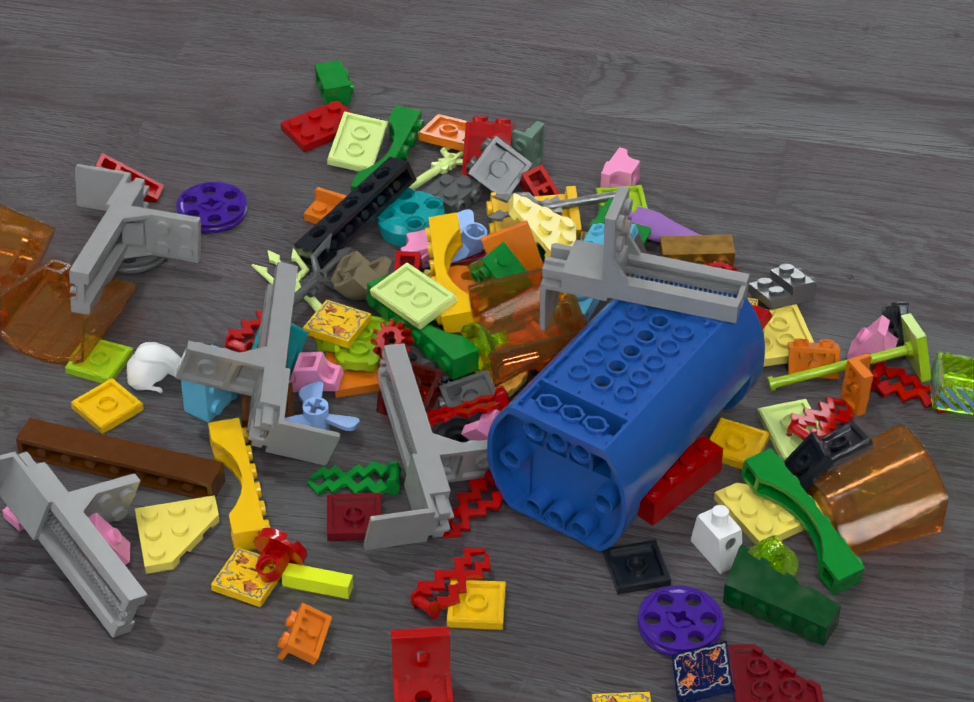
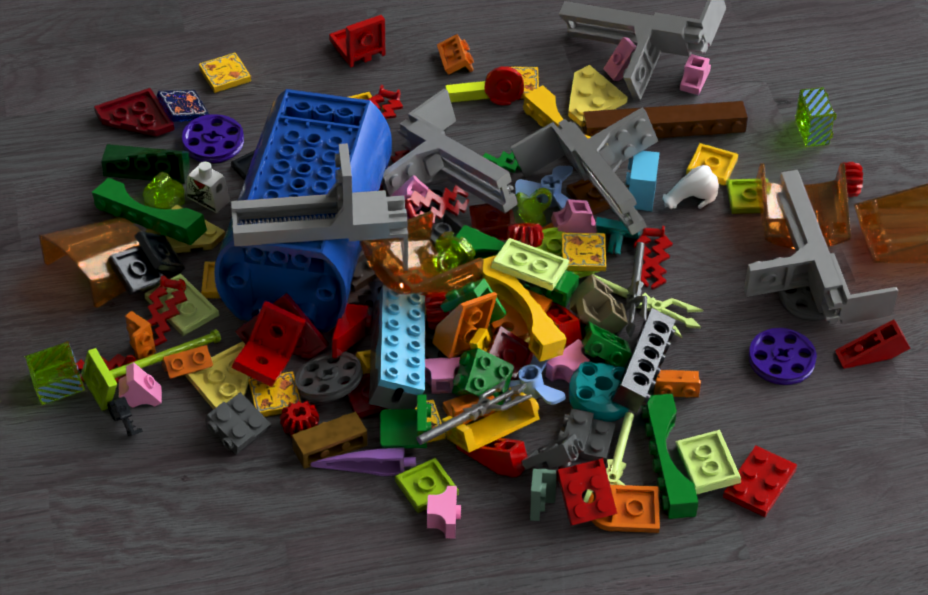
camera: 155 degrees right, 5 degrees up
(333, 82) = (785, 528): green brick -> none
(350, 515) = (475, 134): dark red plate -> none
(356, 391) = (530, 209): none -> clear neon green tile
(381, 236) = (605, 345): none -> green plate
(544, 224) = (463, 377): light yellow plate -> none

